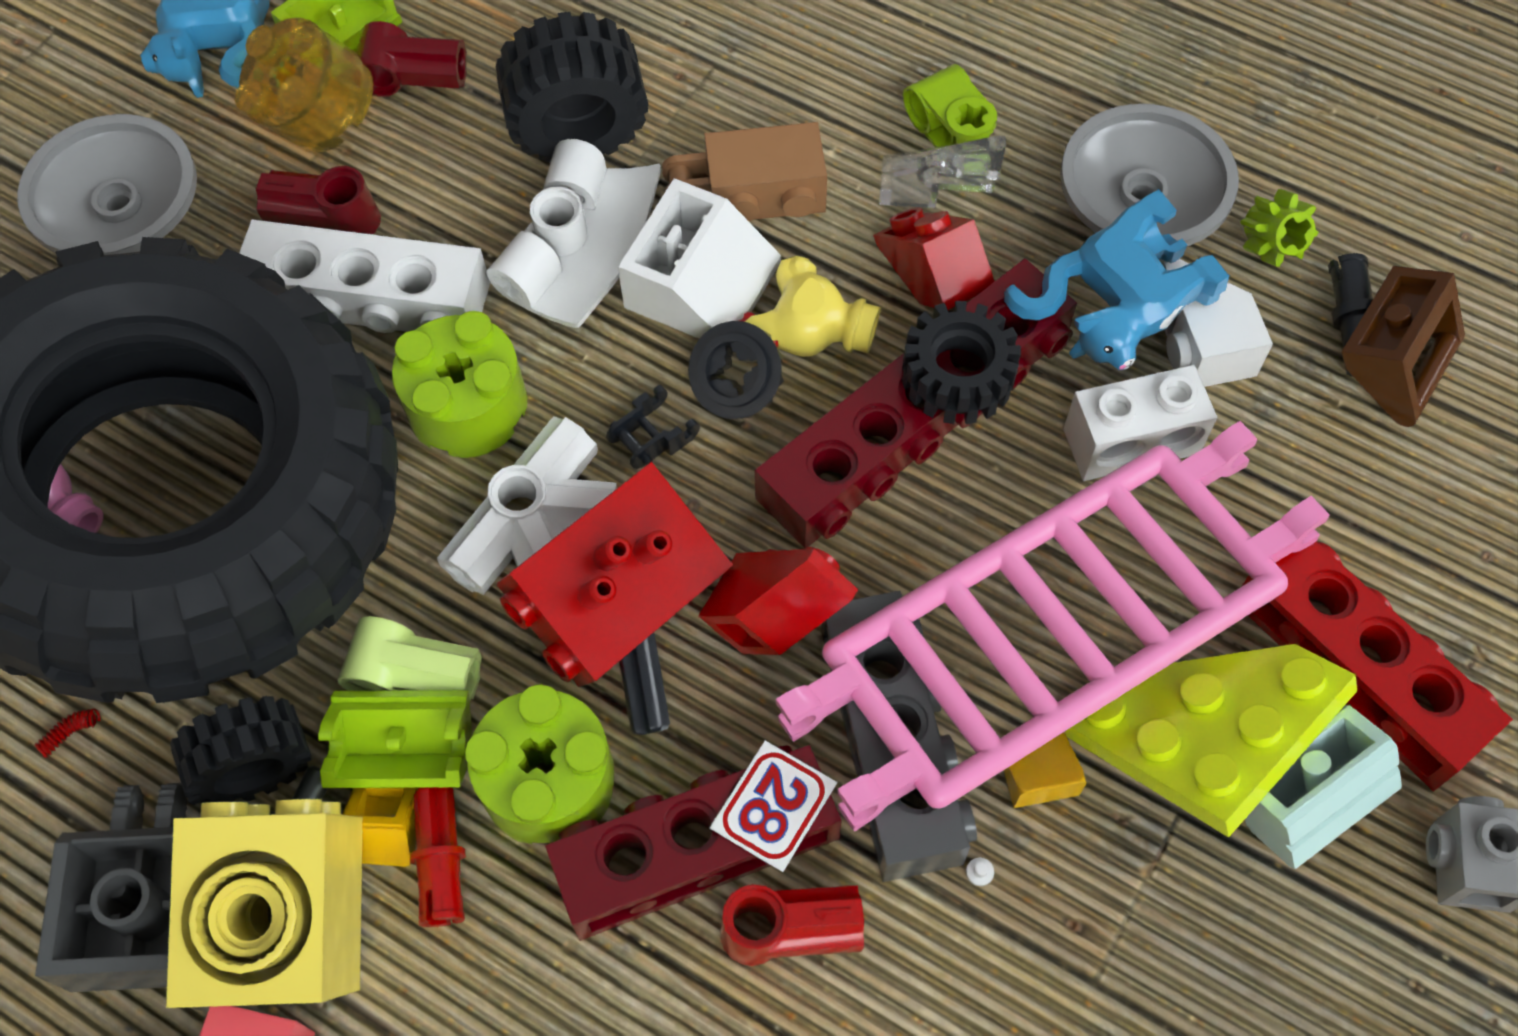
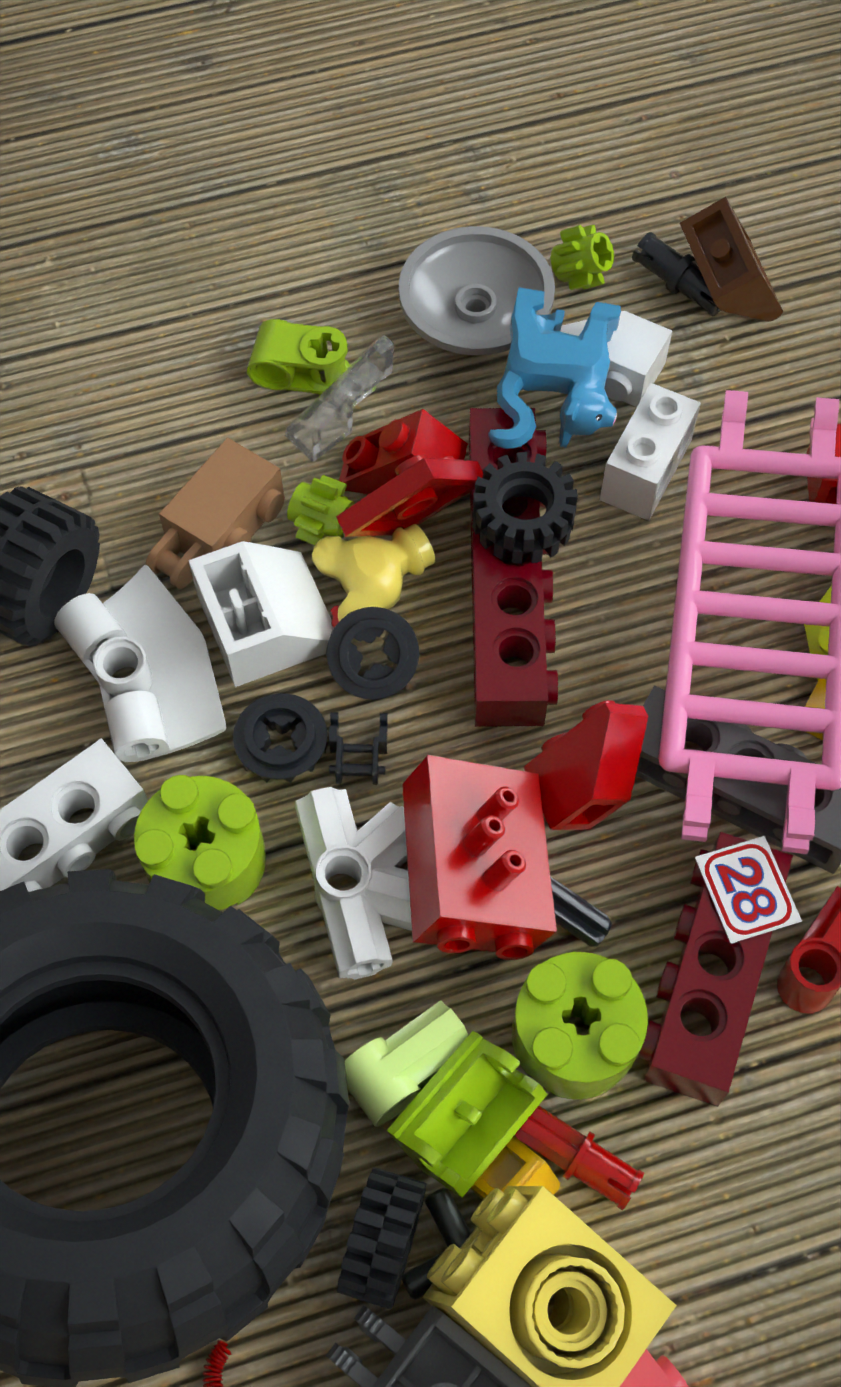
camera: 50 degrees left, 0 degrees up
(589, 355) = (280, 713): none -> black gear
(828, 236) = (316, 507): none -> lime gear
(883, 274) = (411, 497): none -> red plate

